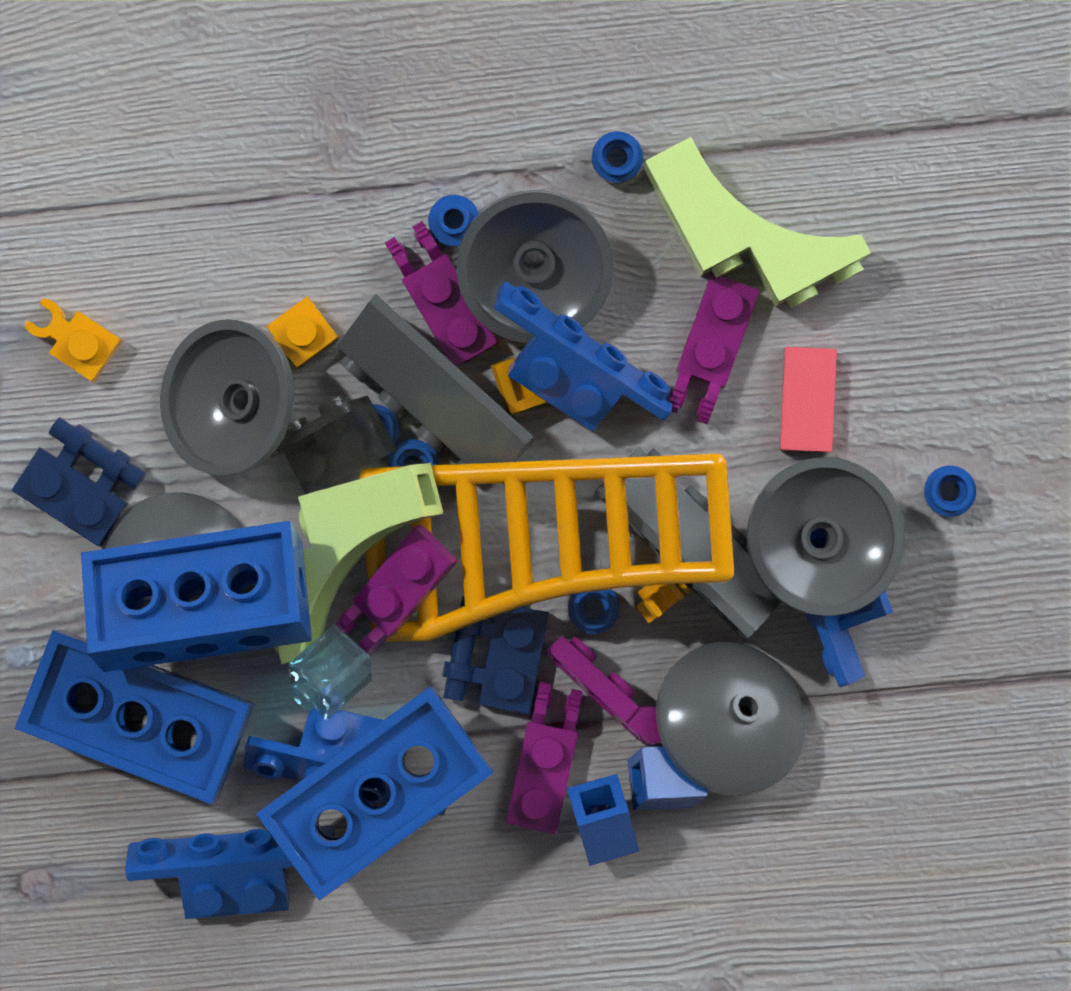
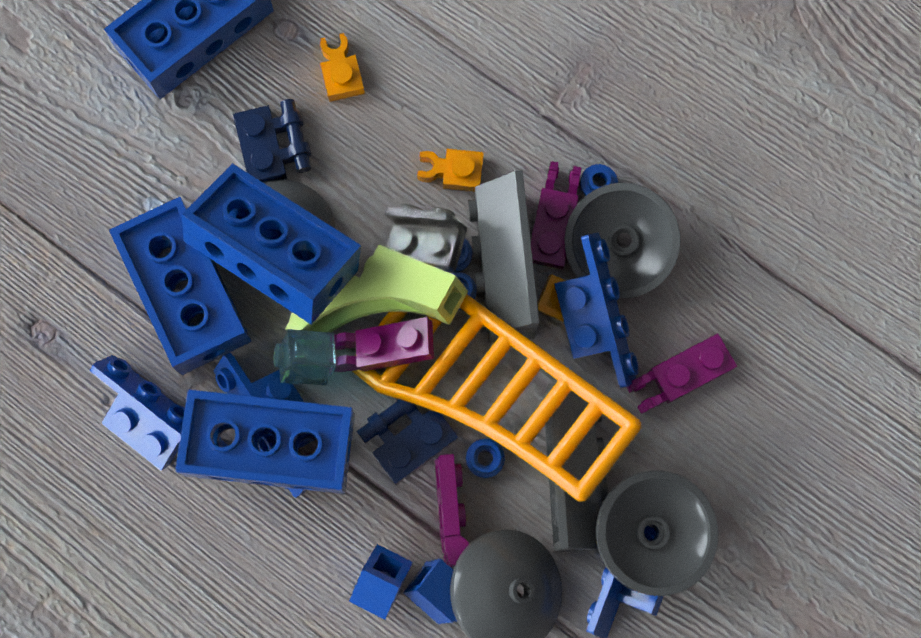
camera: 40 degrees right, 10 degrees down
(207, 395) = (390, 163): dark grey dish -> none
(544, 765) = (377, 521): magenta hinge -> none
(623, 142) = (724, 218): blue plate -> none
(659, 599) = (529, 484): light orange plate -> none
(721, 229) = (745, 315): yellowish green arch -> none
(807, 399) = (711, 450): coral tile -> none
(964, 483) = (761, 573): blue plate -> none

